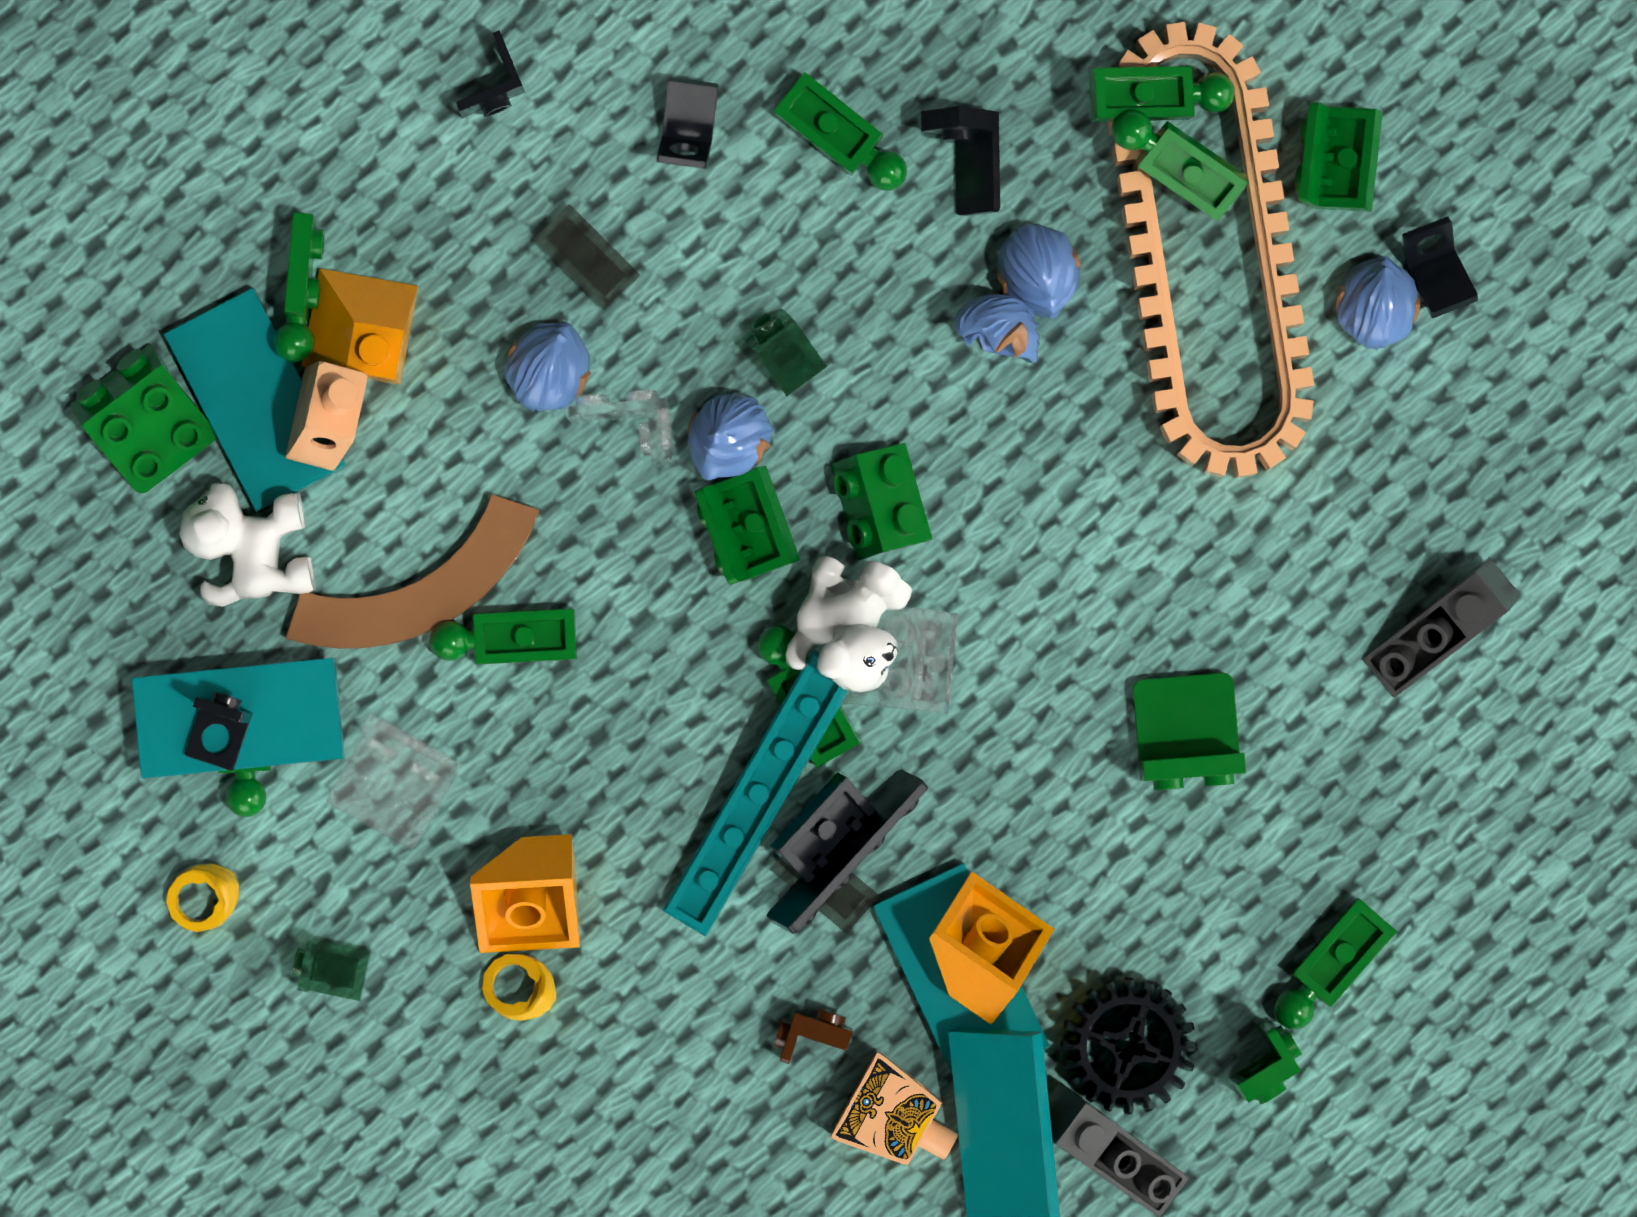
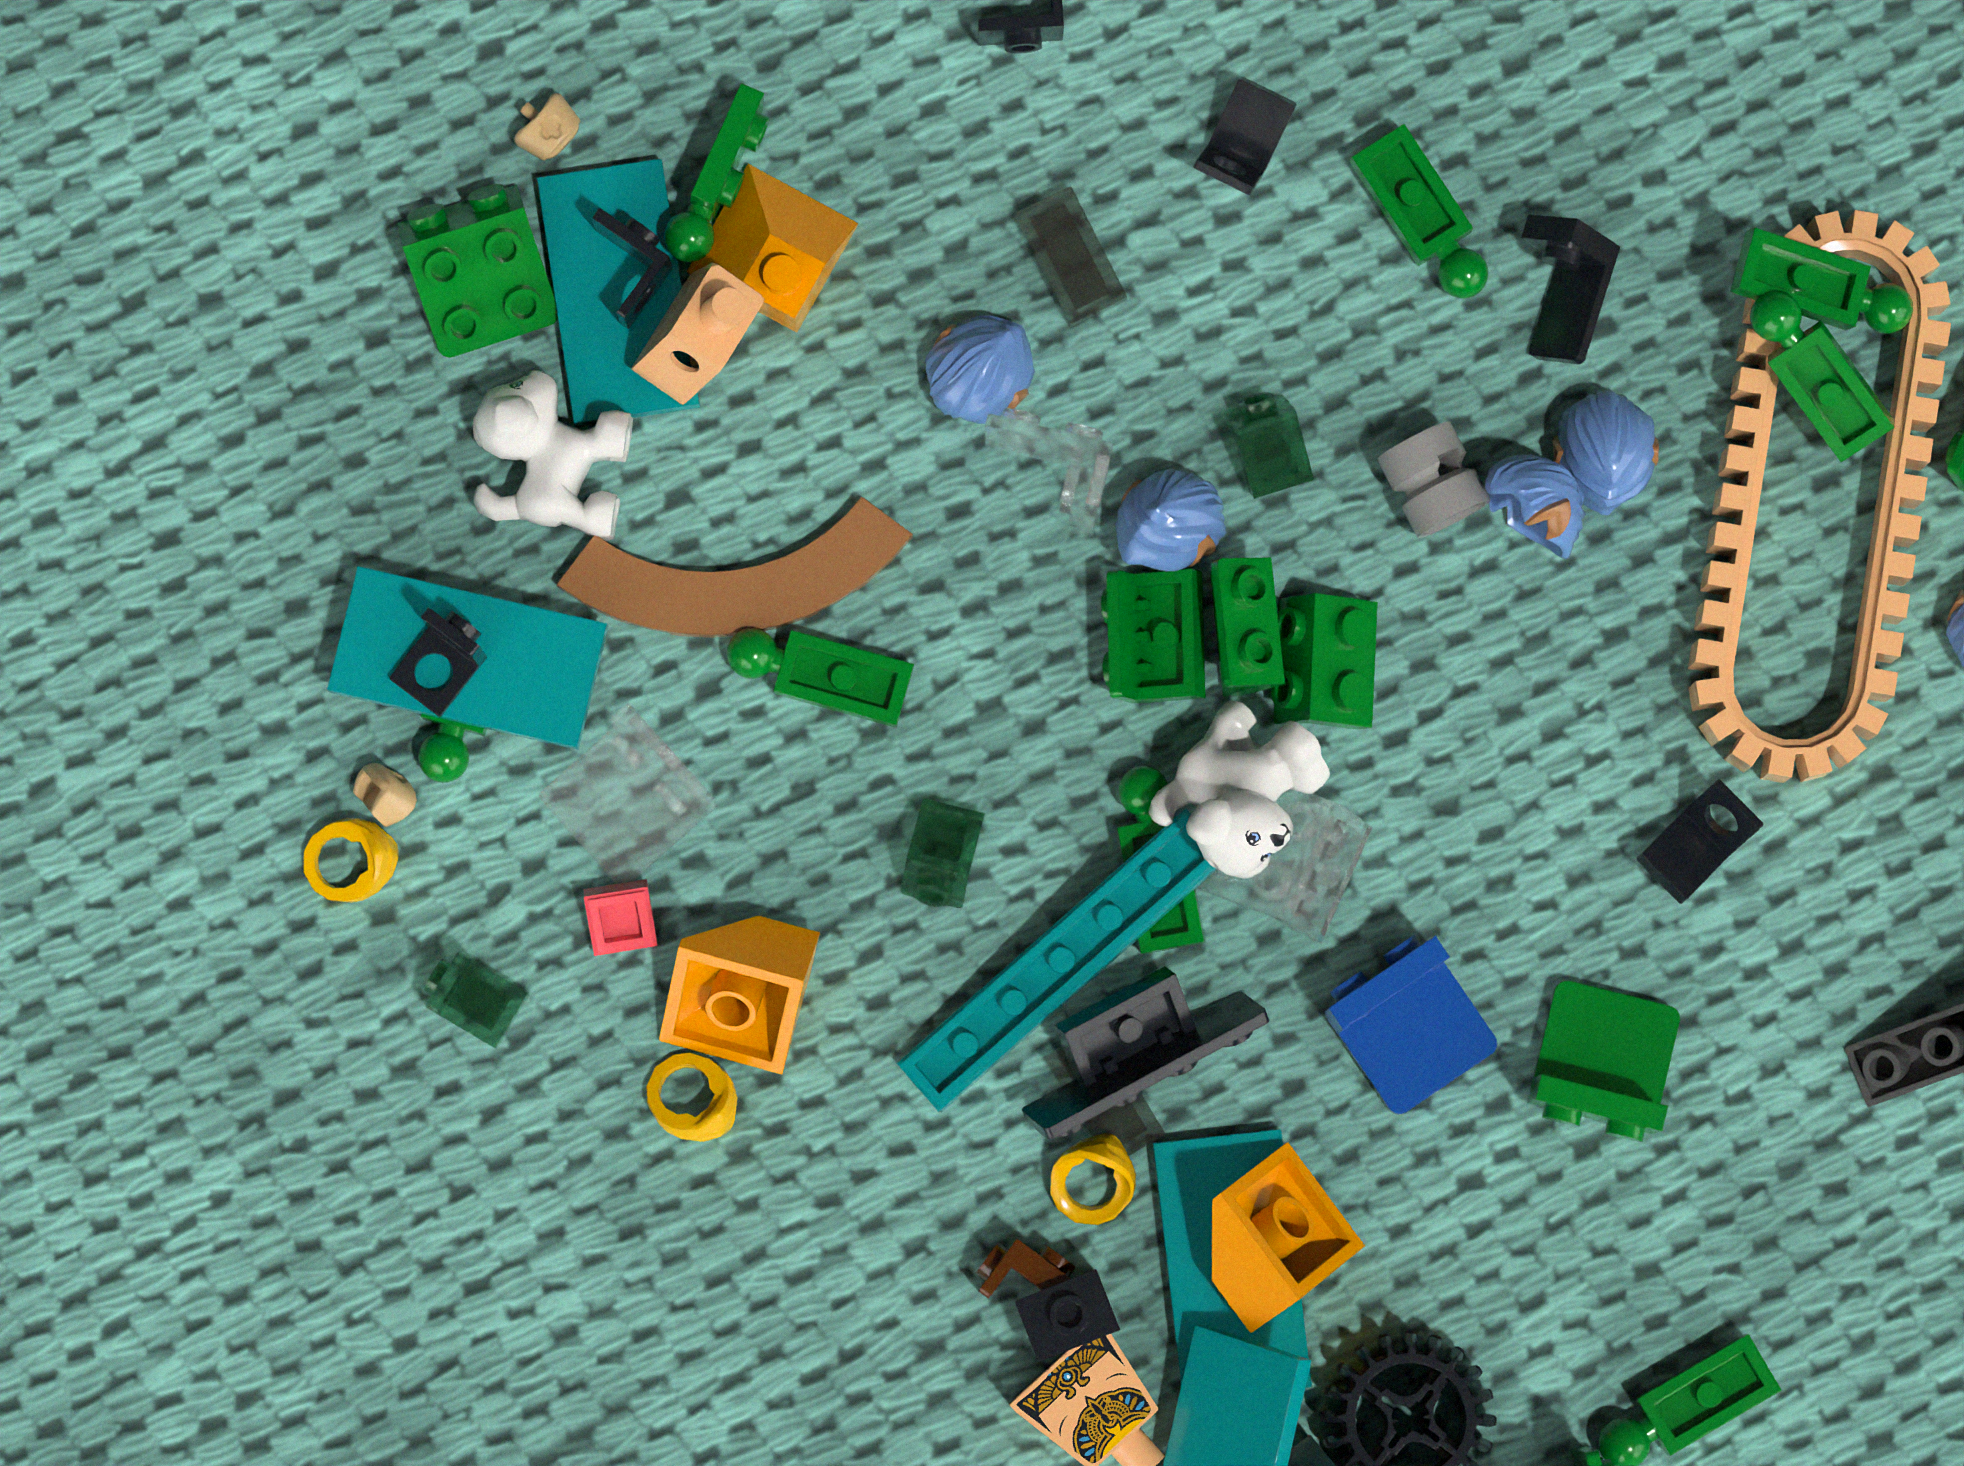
camera: 15 degrees right, 5 degrees down
(159, 294) = (548, 129): none -> tan piece
(212, 839) = (385, 793): none -> tan piece
(261, 361) = (640, 244): none -> black bracket
(419, 872) = (620, 917): none -> coral tile
(642, 743) = (941, 854): none -> clear green bracket
(812, 496) = (1246, 625): none -> green bracket
(837, 925) = (1104, 1150): none -> yellow piece
(851, 1056) = (1067, 1315): none -> black bracket
(916, 337) = (1433, 479): none -> light grey wheel
(1034, 753) = (1410, 1025): none -> blue bracket
(1203, 545) = (1696, 844): none -> black bracket

